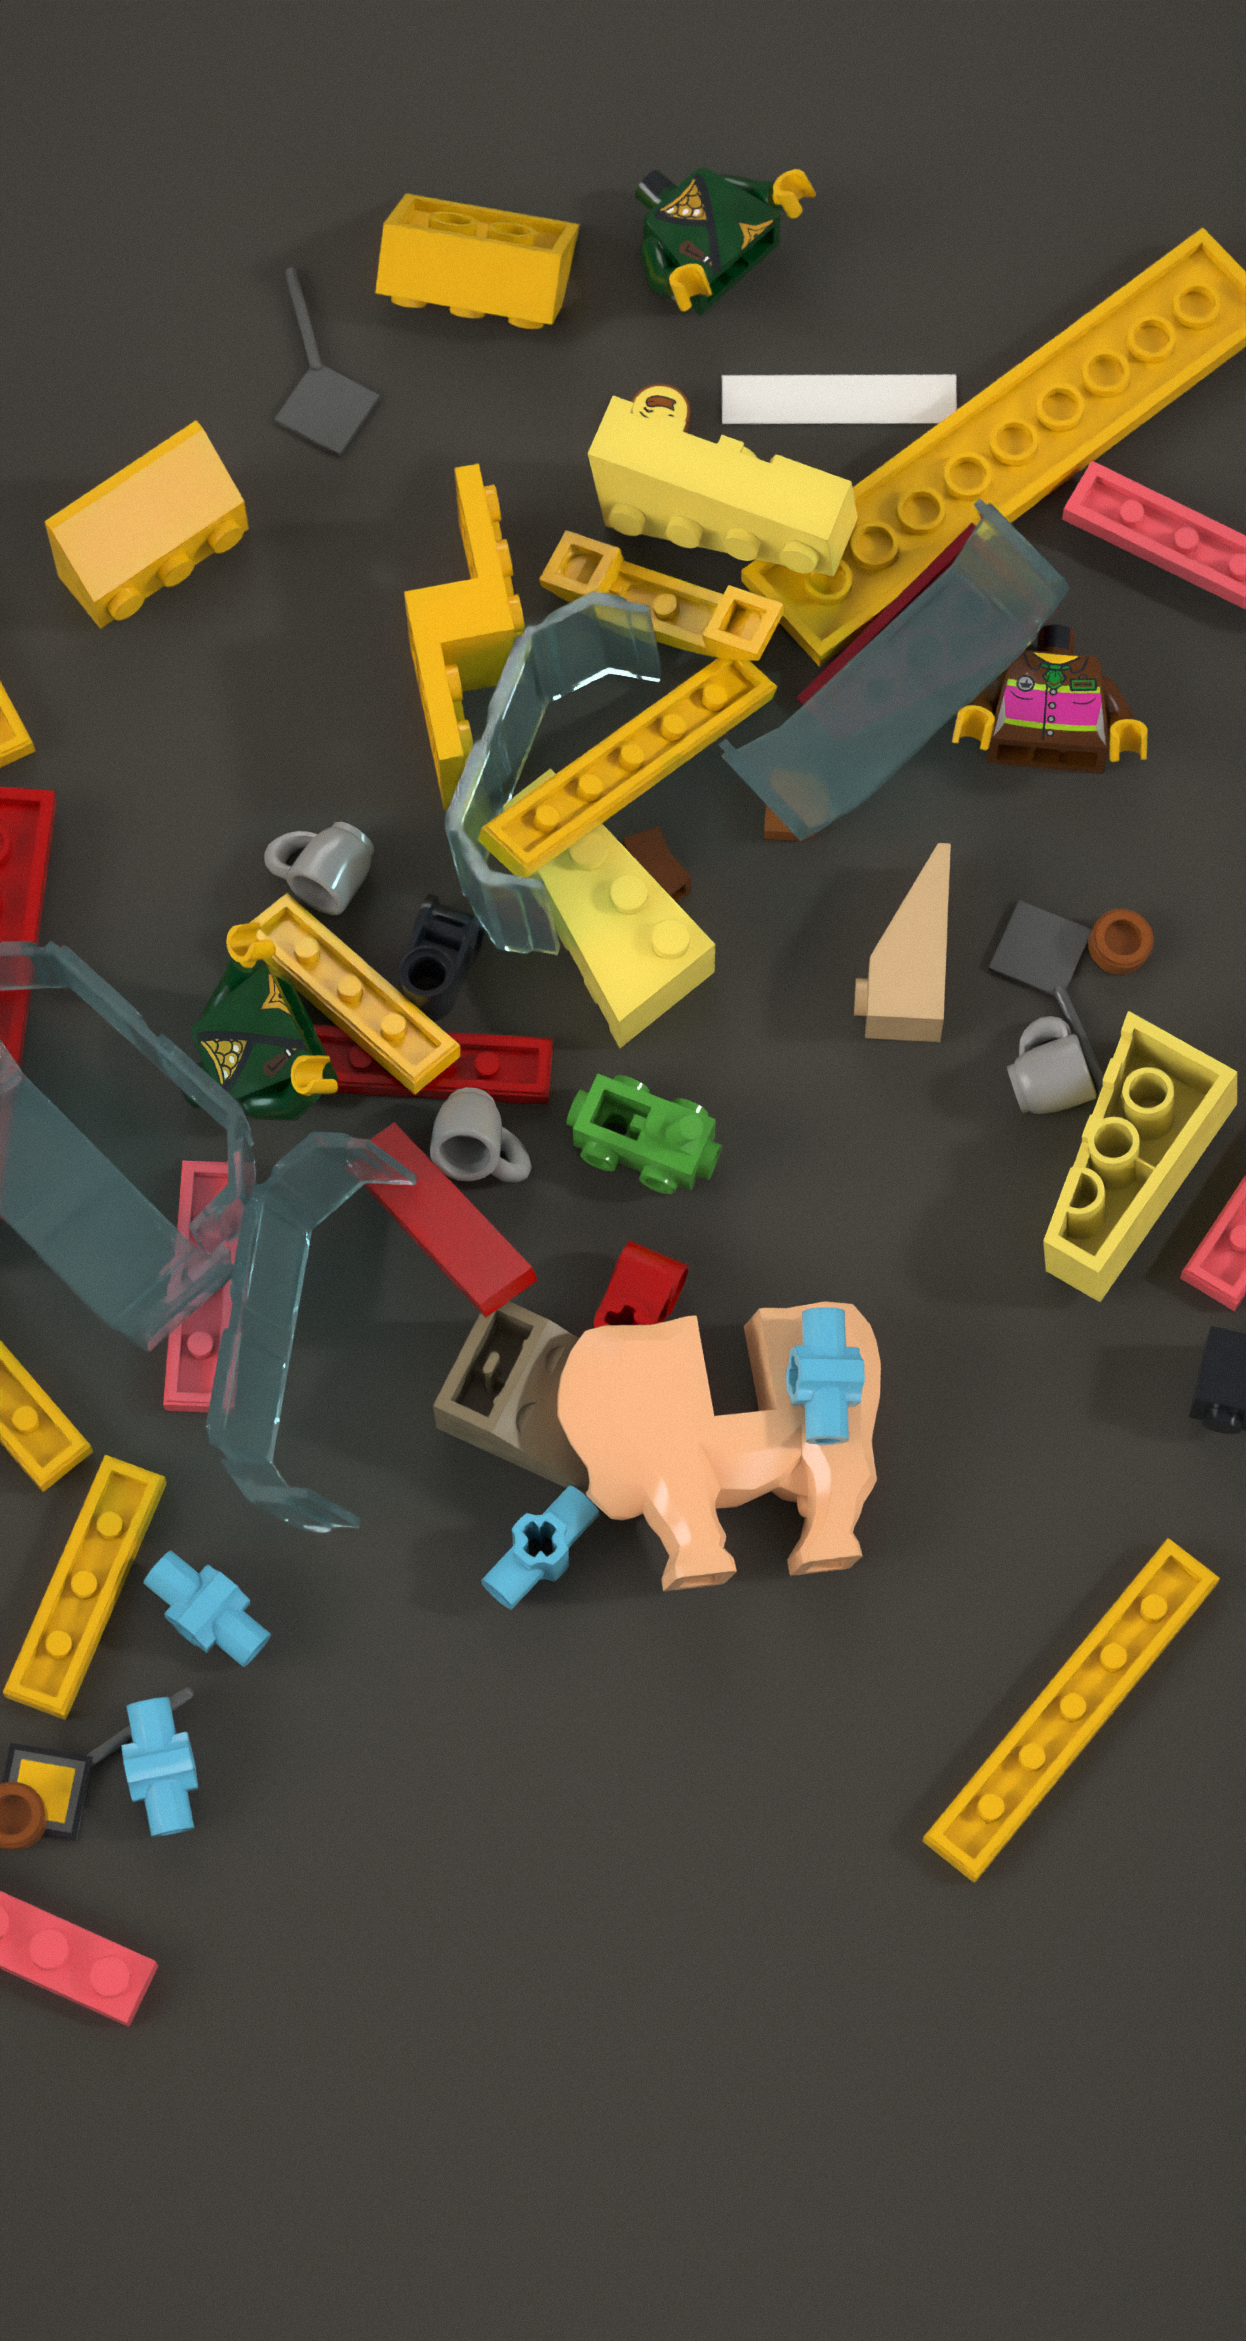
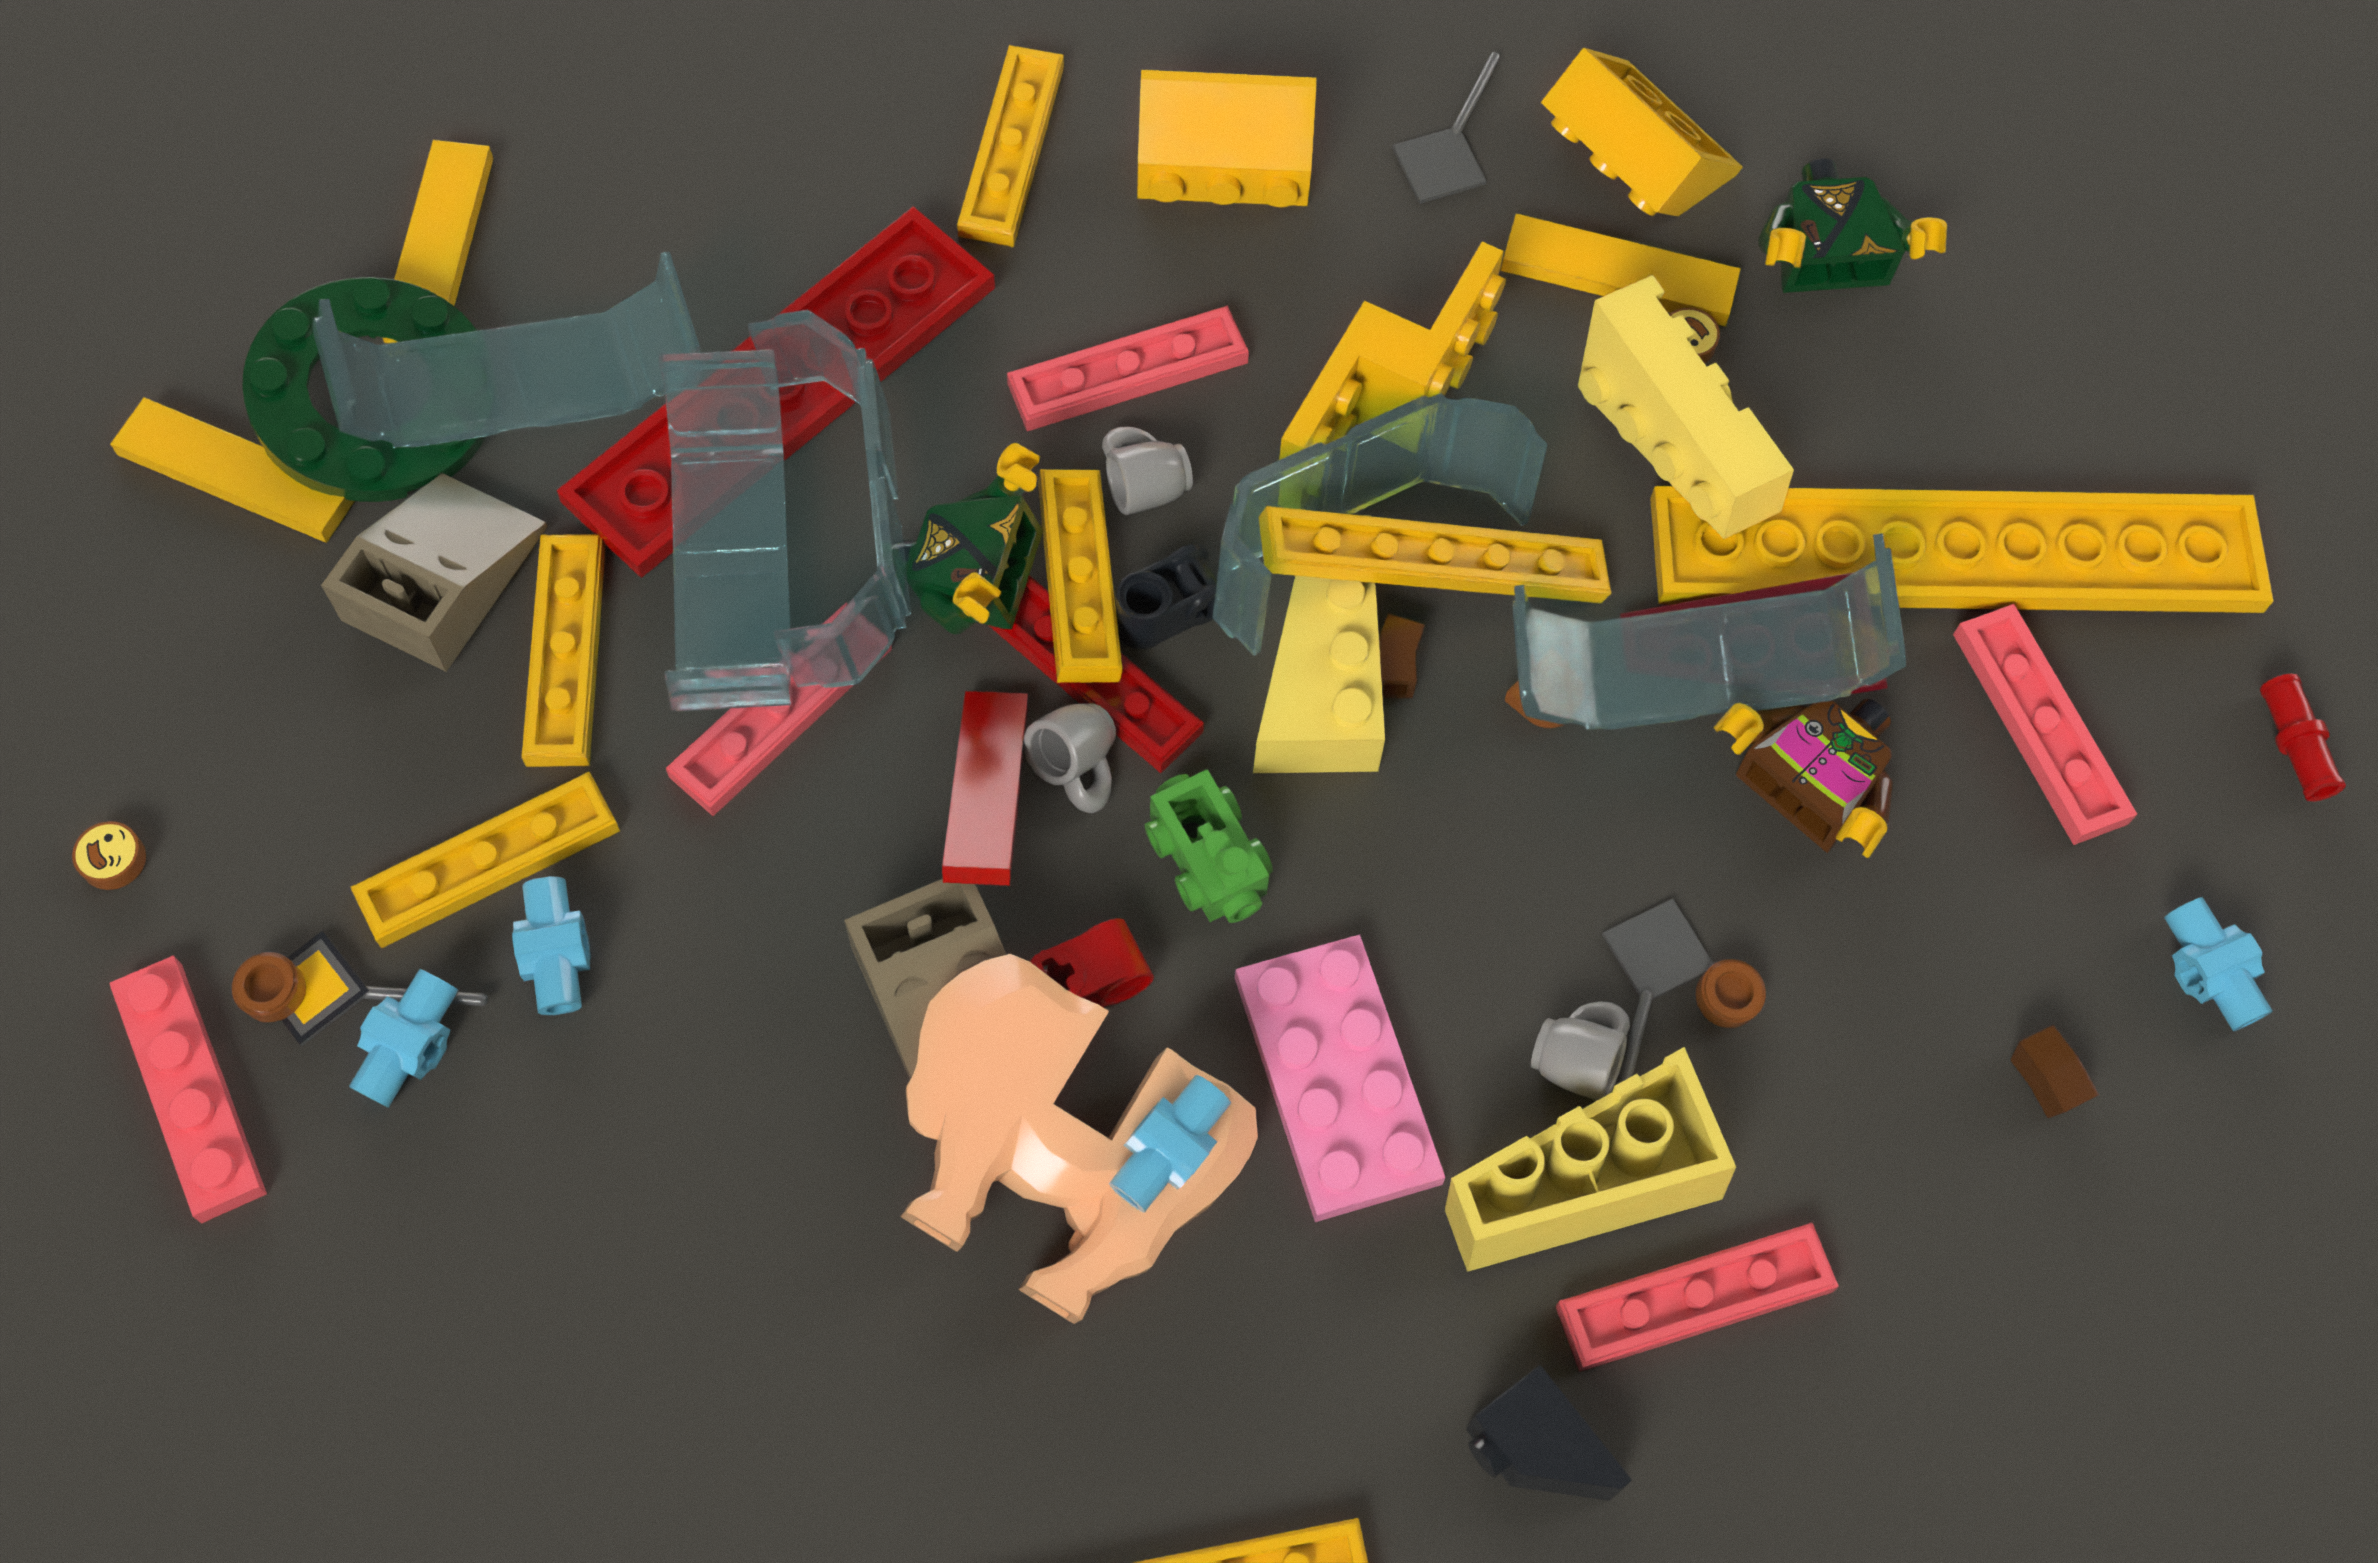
camera: 35 degrees right, 5 degrees down
(228, 787) = (1127, 368): none -> coral tile
(264, 1313) = (786, 758): clear light blue windscreen -> none
(520, 1571) = (812, 1105): medium azure axle -> none
(554, 395) = (1608, 264): none -> yellow tile
(682, 613) = (1571, 471): yellow slope -> none
(837, 399) = (1842, 423): white sticker -> none
(885, 1233) = (1338, 1078): none -> bright pink plate
(909, 963) = (1539, 874): tan slope -> none

